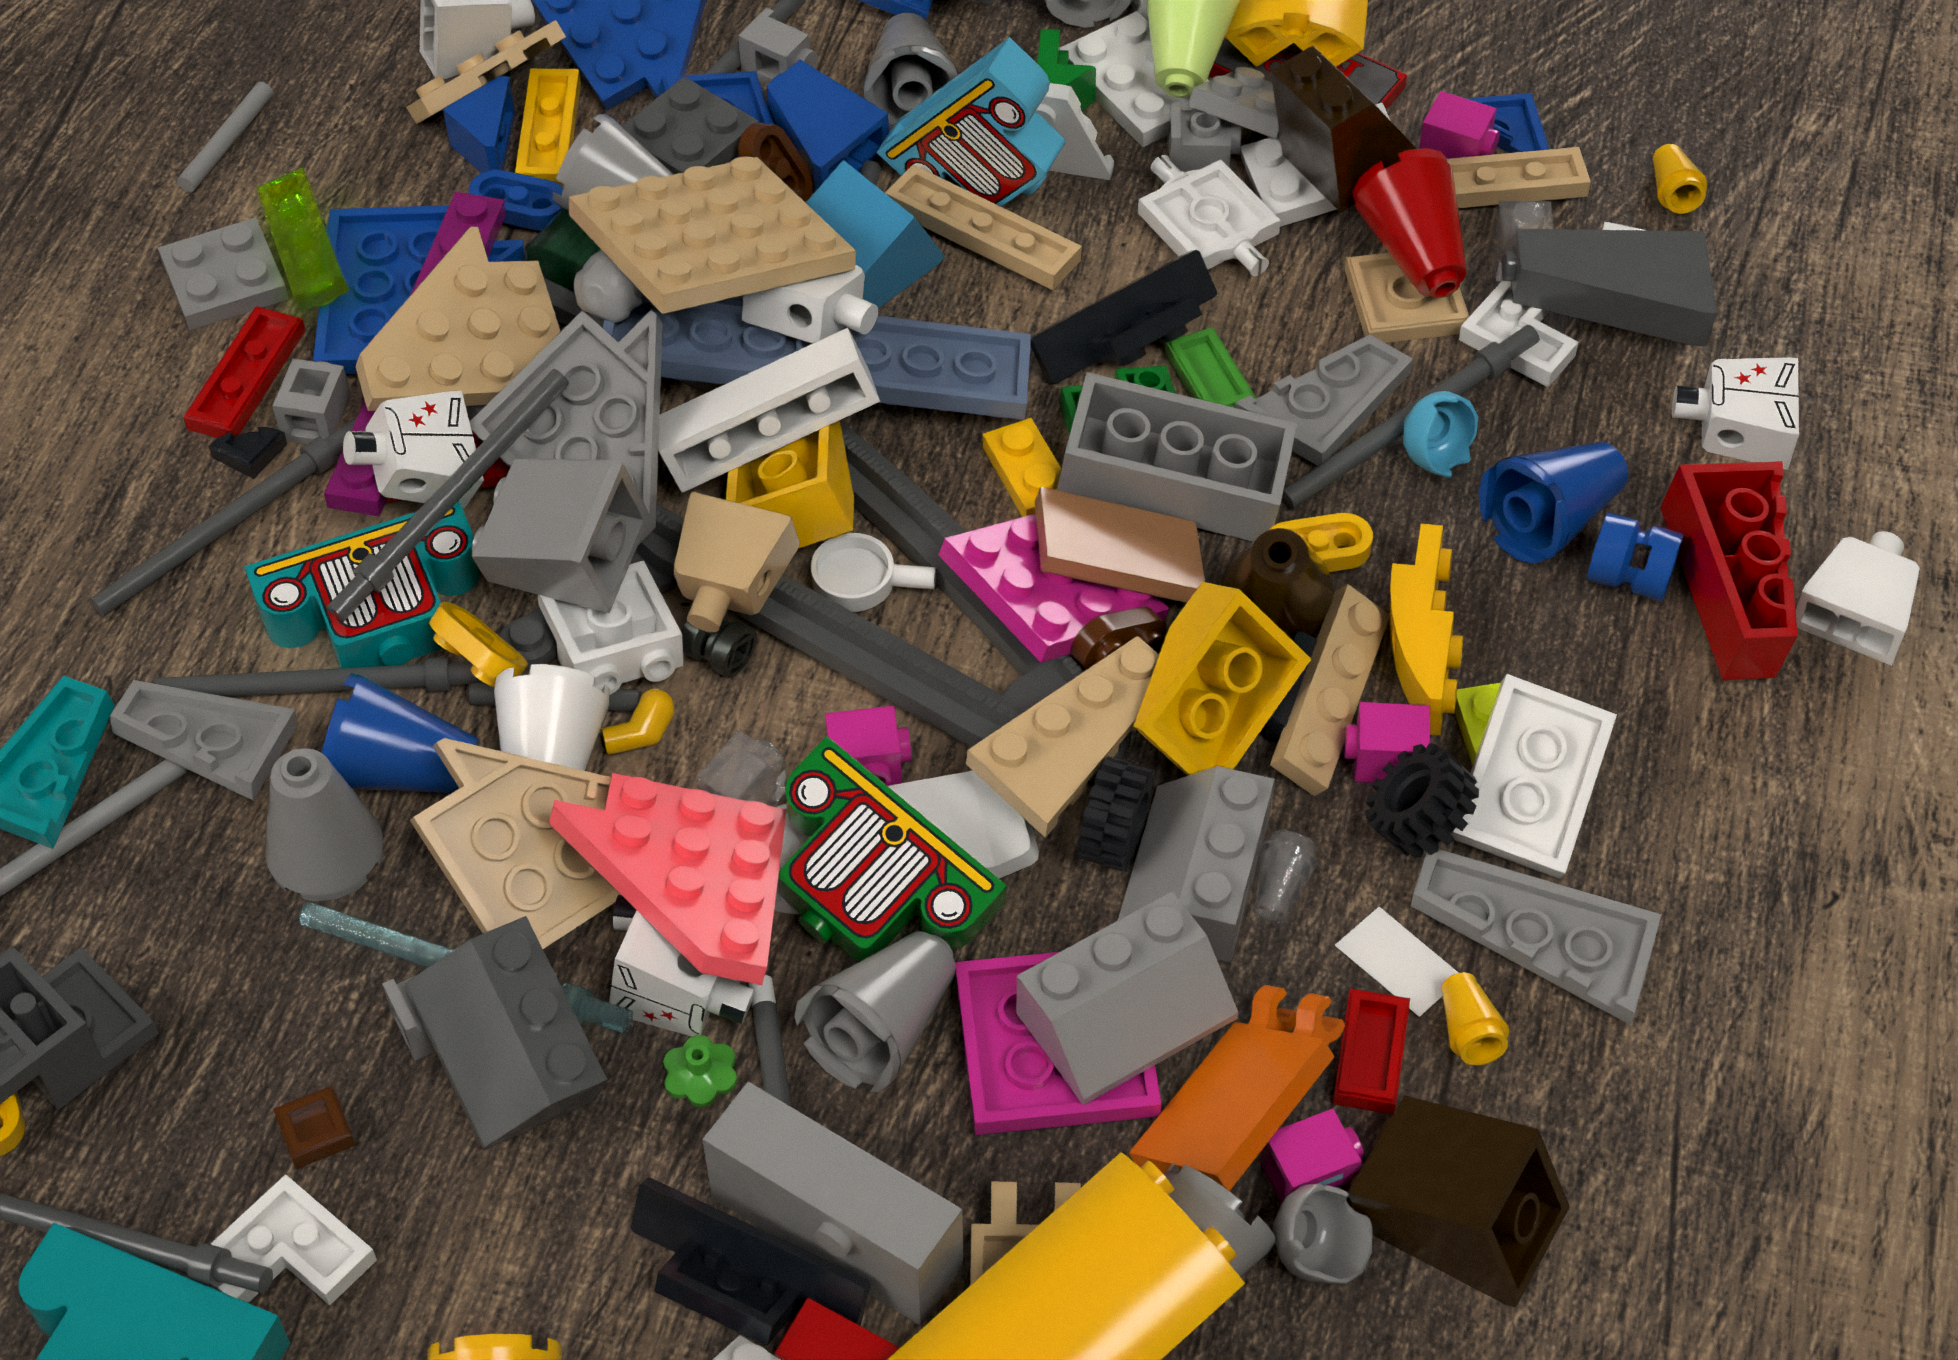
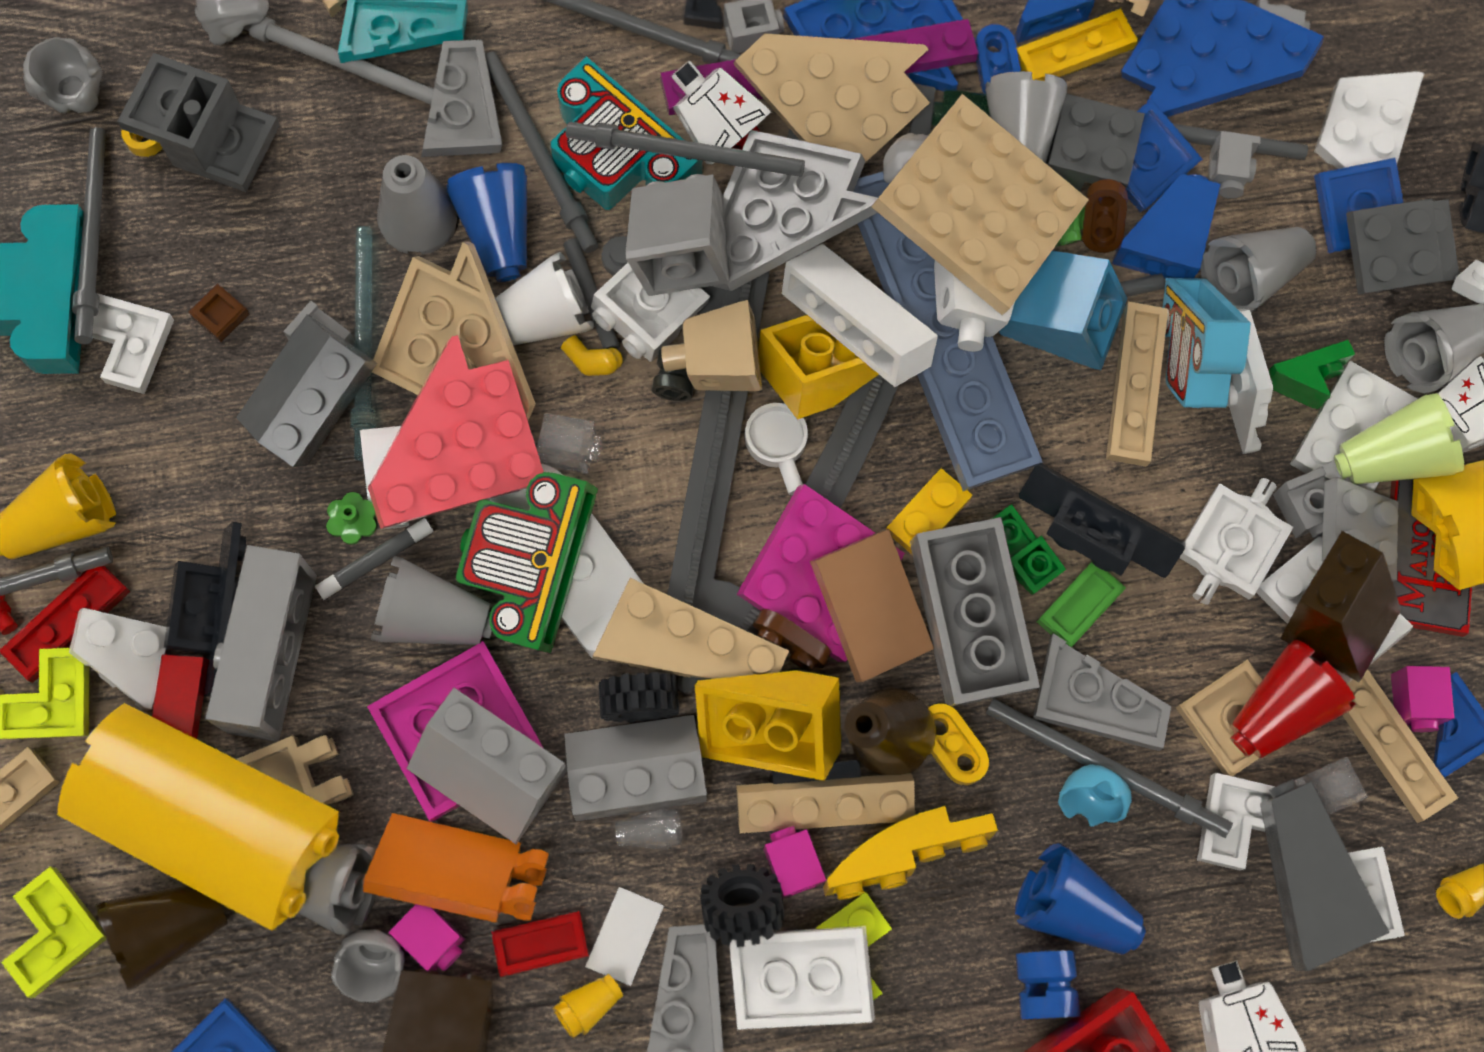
camera: 60 degrees right, 20 degrees up
(469, 636) = (590, 227): yellow plate -> none
(872, 740) = (628, 510): dark pink brick -> none

